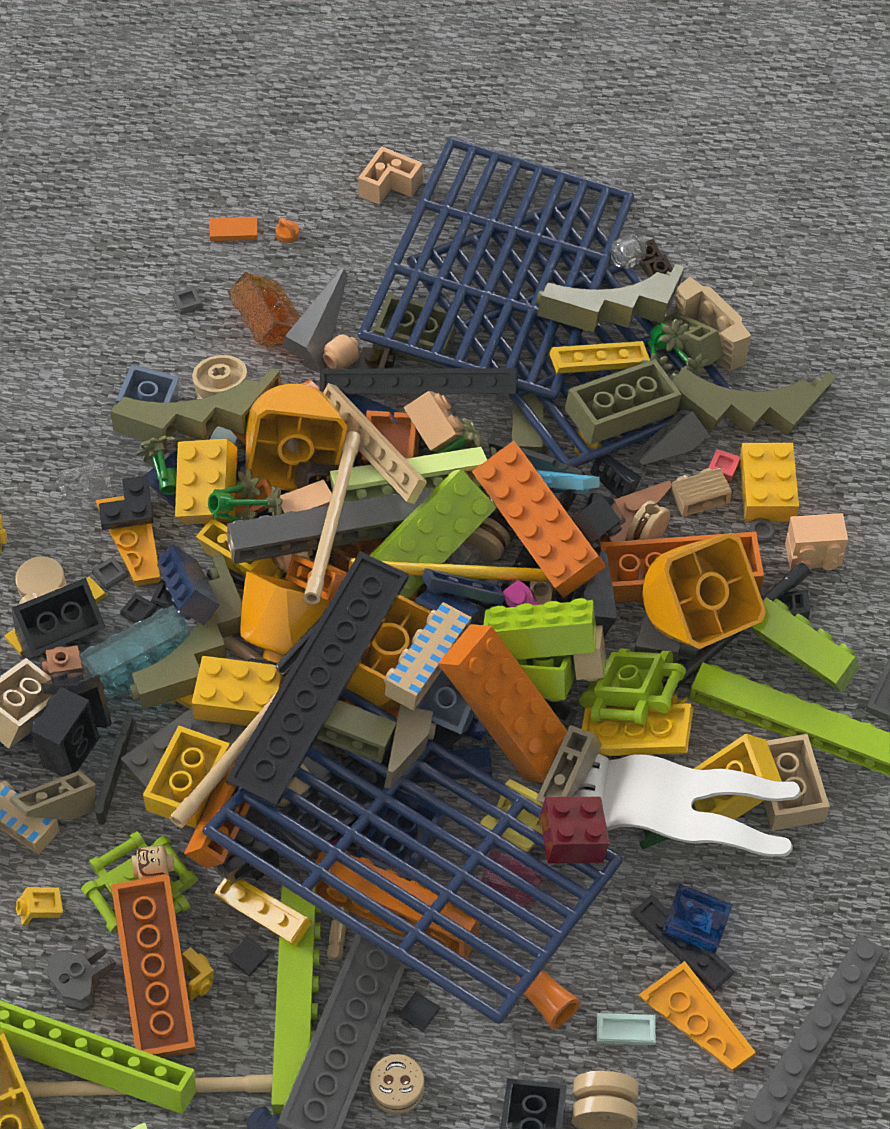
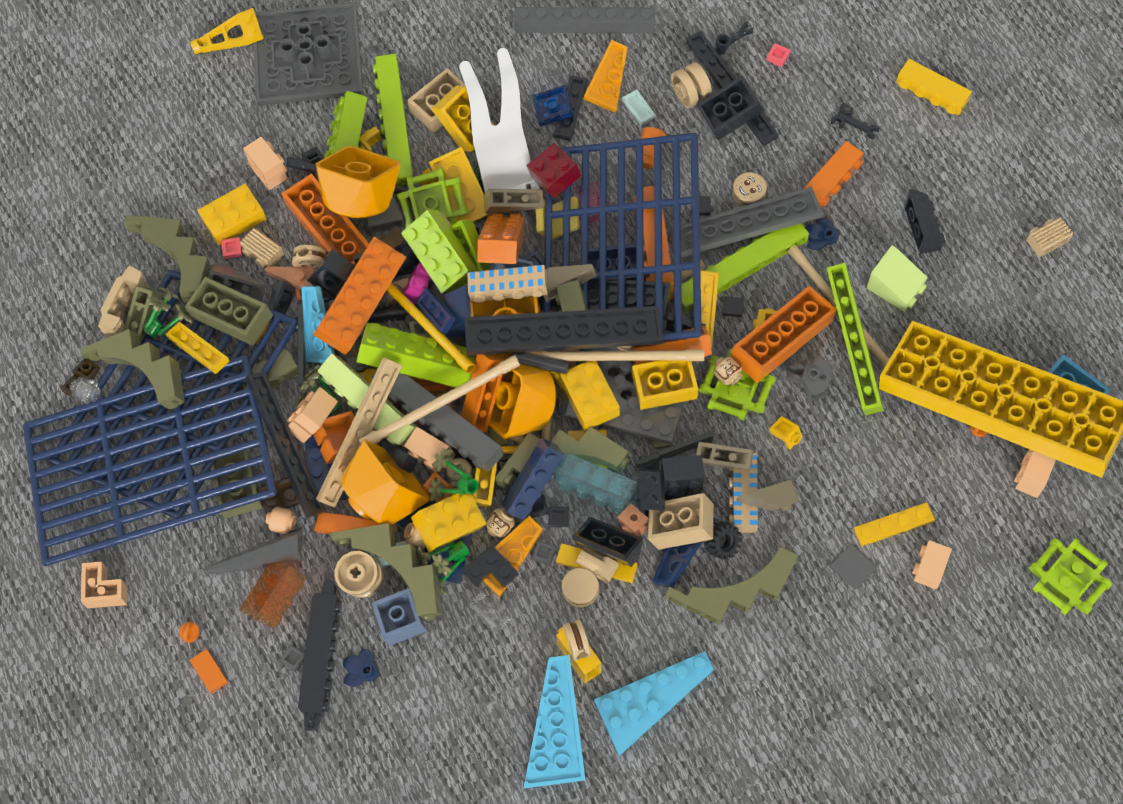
camera: 120 degrees left, 10 degrees up
(127, 349) = (357, 666): none -> dark blue plate
(165, 315) = (318, 655): none -> black hinge
(175, 536) = (499, 523): none -> tan head
(782, 668) = (369, 138): none -> yellow bracket

